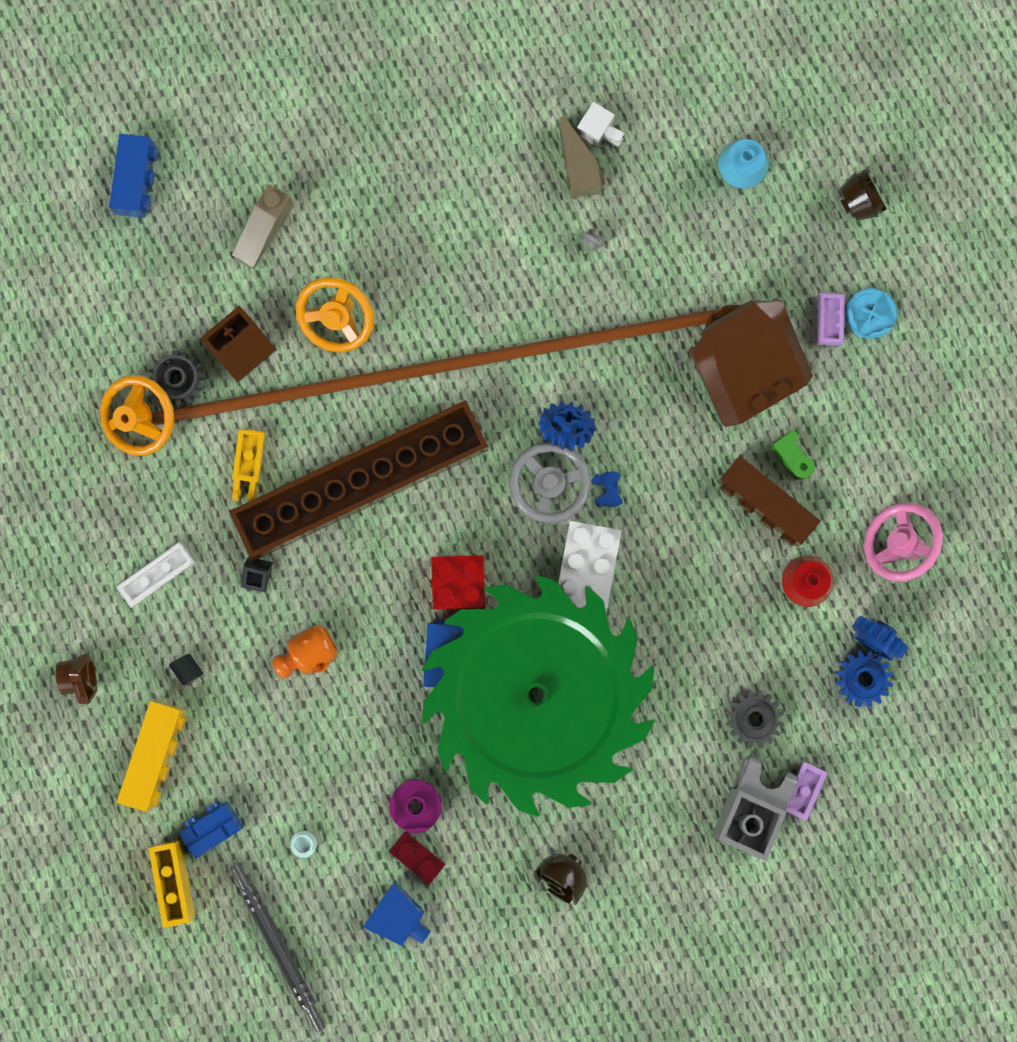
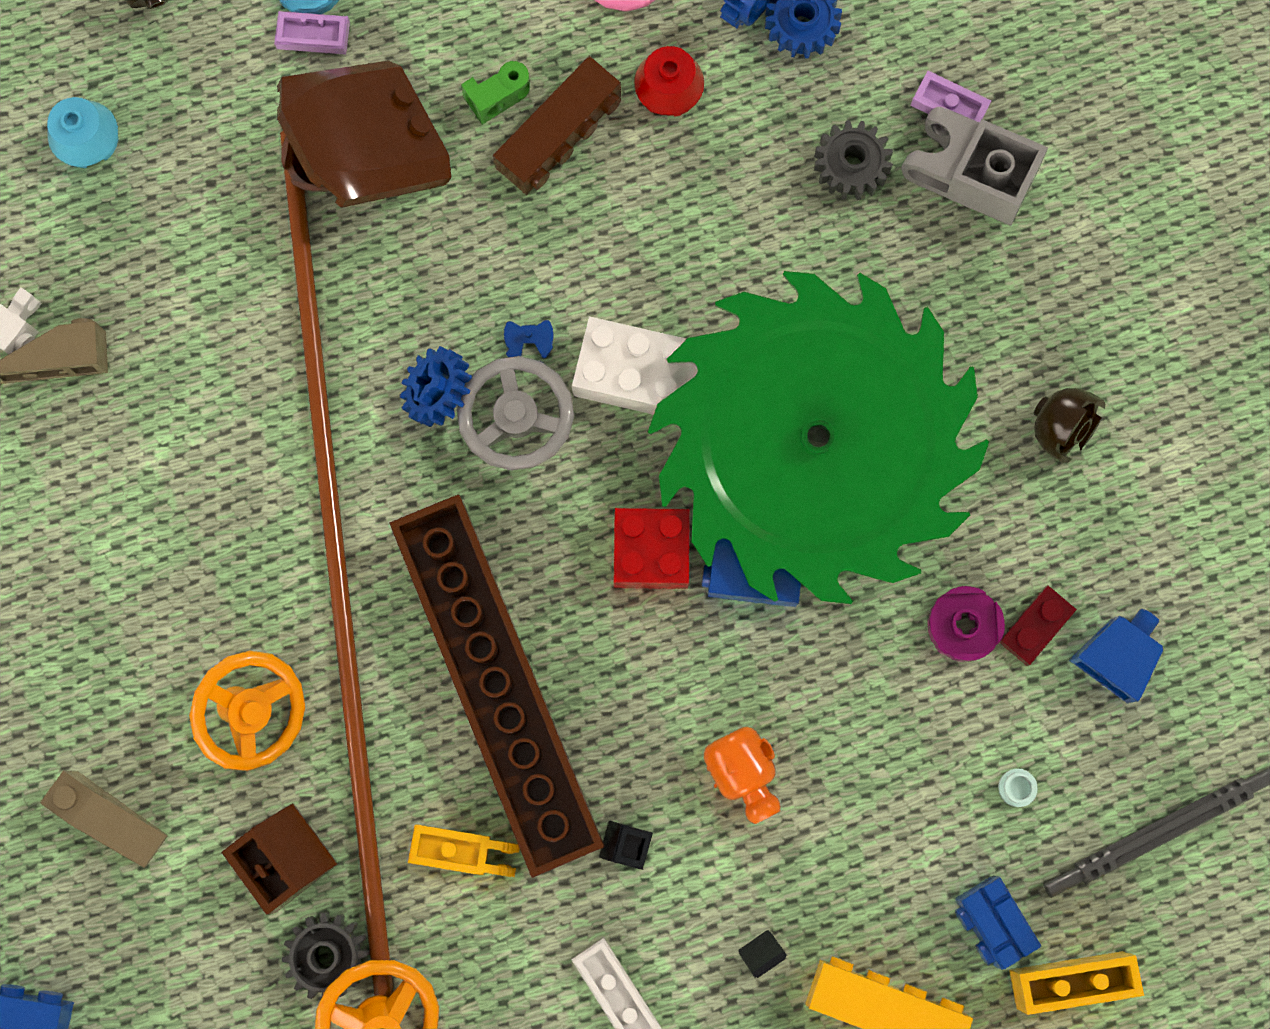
camera: 85 degrees left, 5 degrees down
(591, 239) = (171, 342): light grey plate -> none

